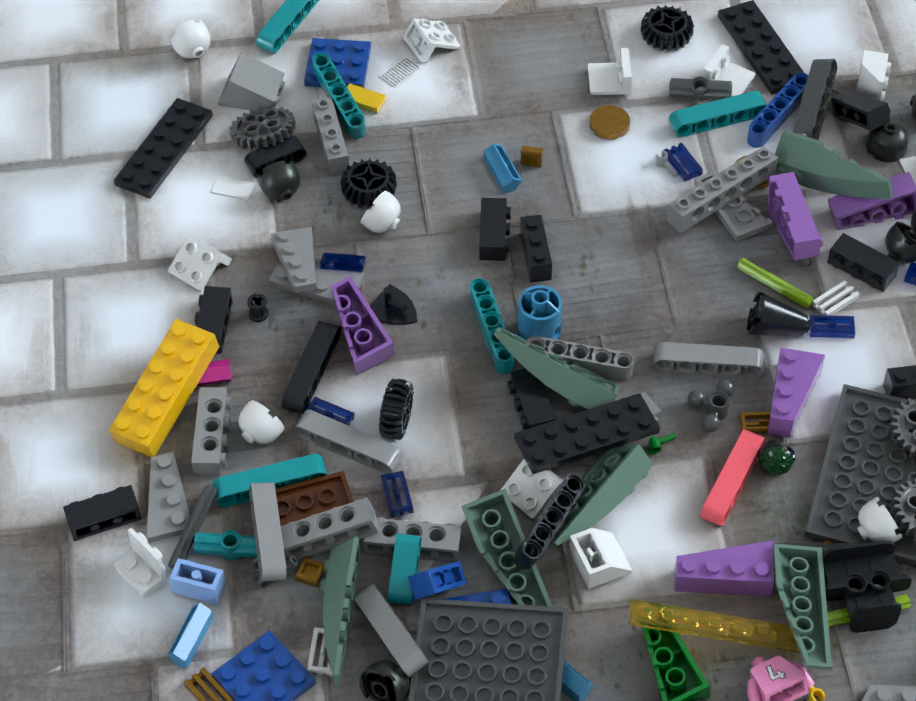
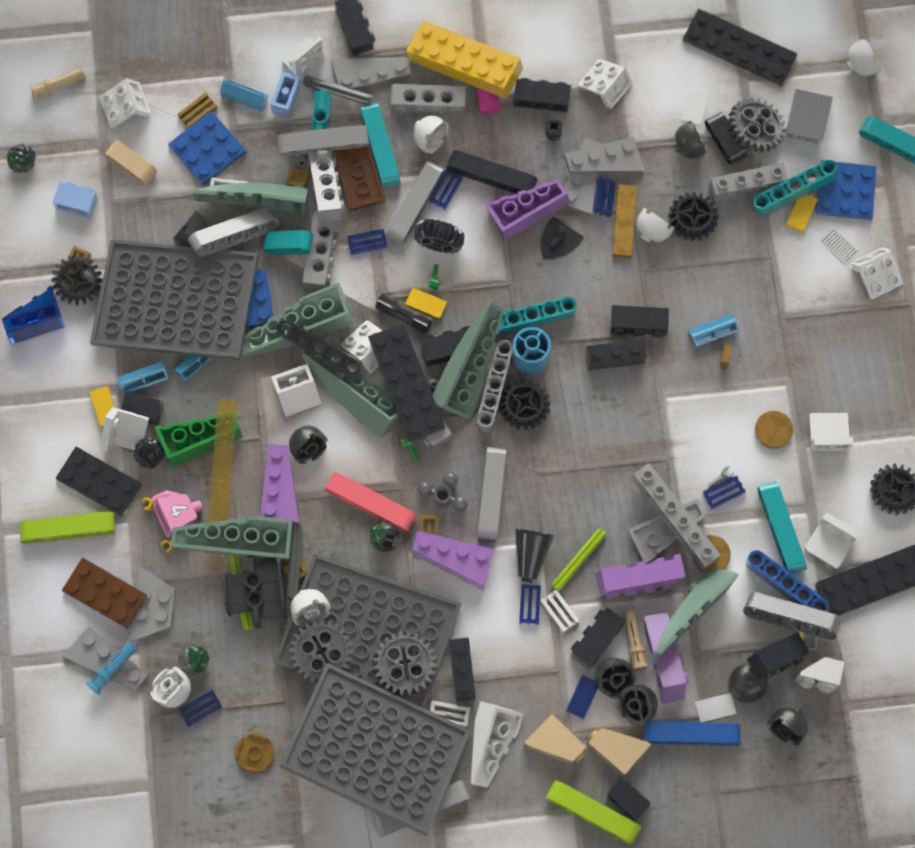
camera: 90 degrees right, 20 degrees up
(372, 245) = (624, 221): none -> pearl gold tile
(437, 580) = (273, 265): blue brick -> none
(450, 424) = (433, 282): none -> green hand
(477, 431) = (426, 303): none -> yellow tile
(499, 438) = (391, 307): none -> black axle
(599, 326) = (513, 395): none -> black gear
(665, 542) = (307, 443): none -> pearl dark grey cylinder
(687, 88) = (809, 522): dark grey piece -> none
(869, 230) = (639, 650): none -> tan pin

